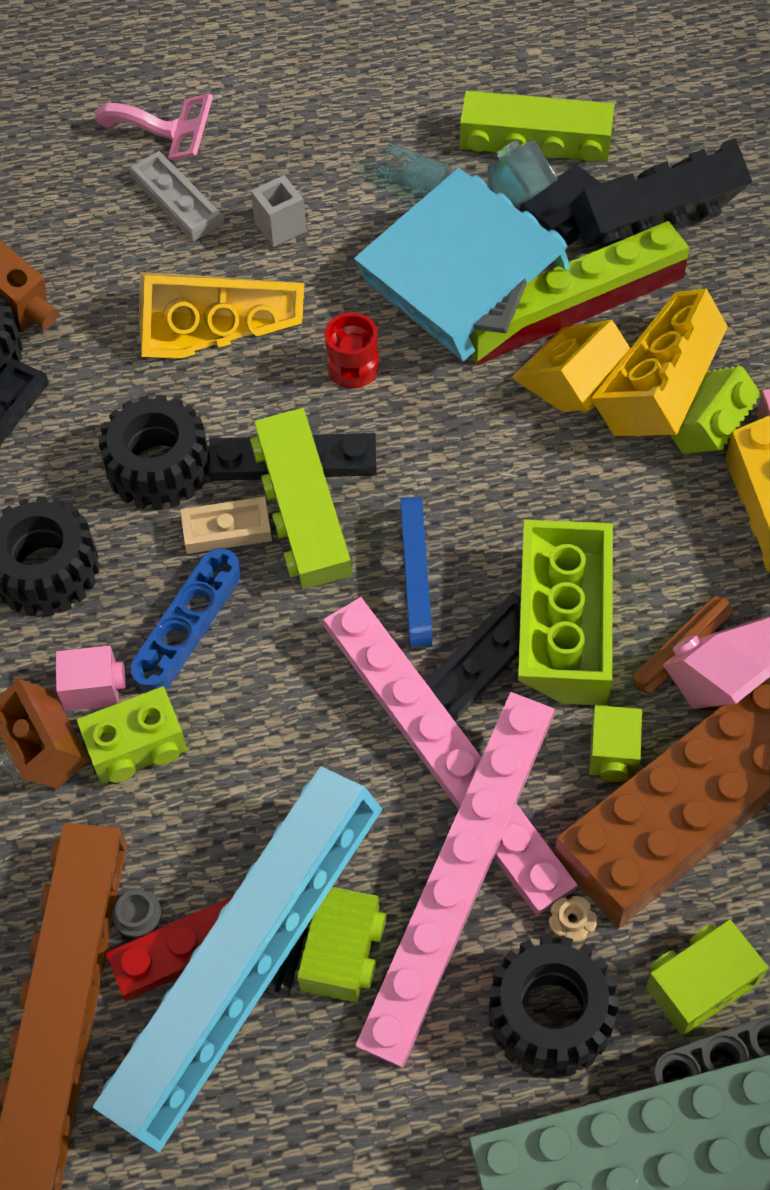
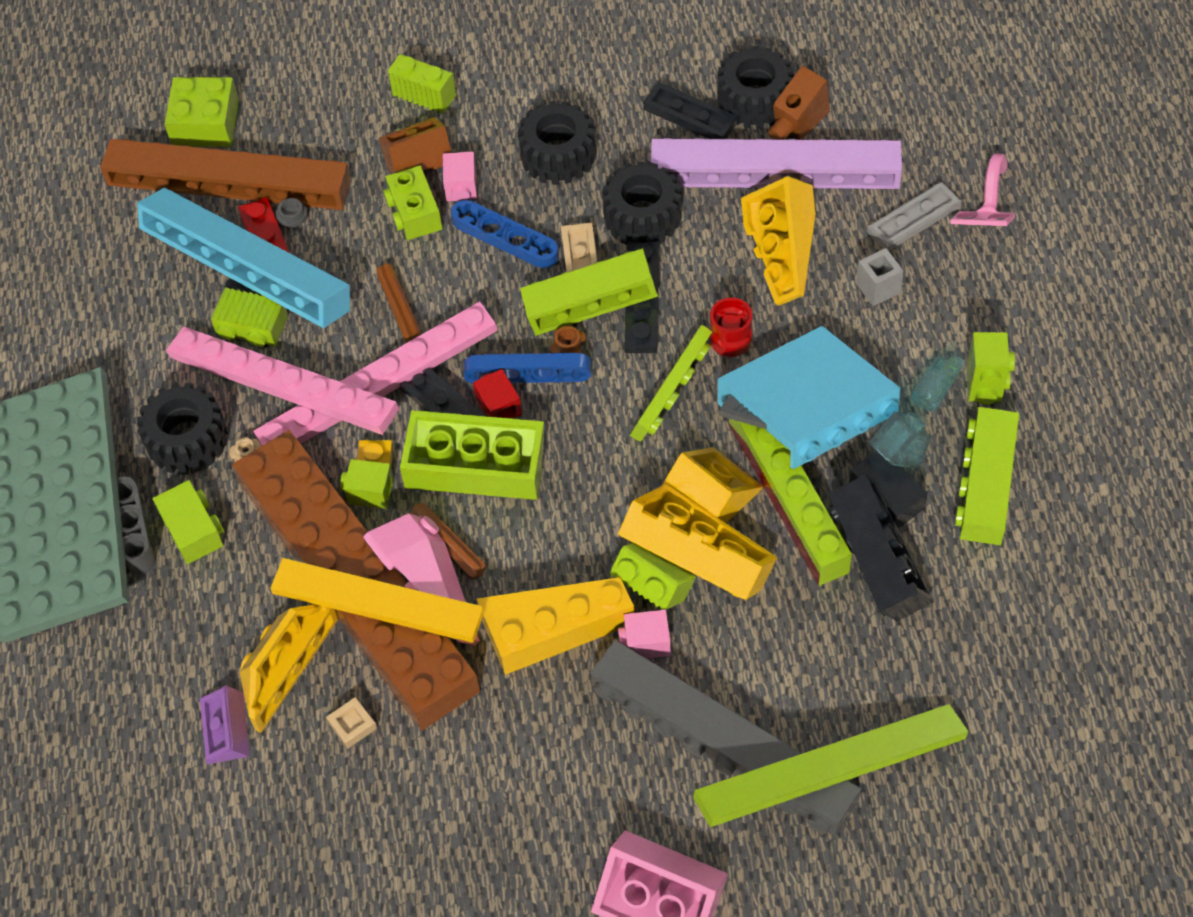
camera: 95 degrees right, 0 degrees up
(91, 323) = (763, 162): none -> lavender brick
(304, 744) = (398, 302): none -> dark orange axle
(371, 522) = (565, 334): none -> dark orange plate
(409, 110) = (989, 367): none -> lime brick
(433, 412) = (666, 395): none -> lime plate
(465, 599) = (497, 396): none -> red brick
(565, 748) = (375, 451): none -> yellow plate

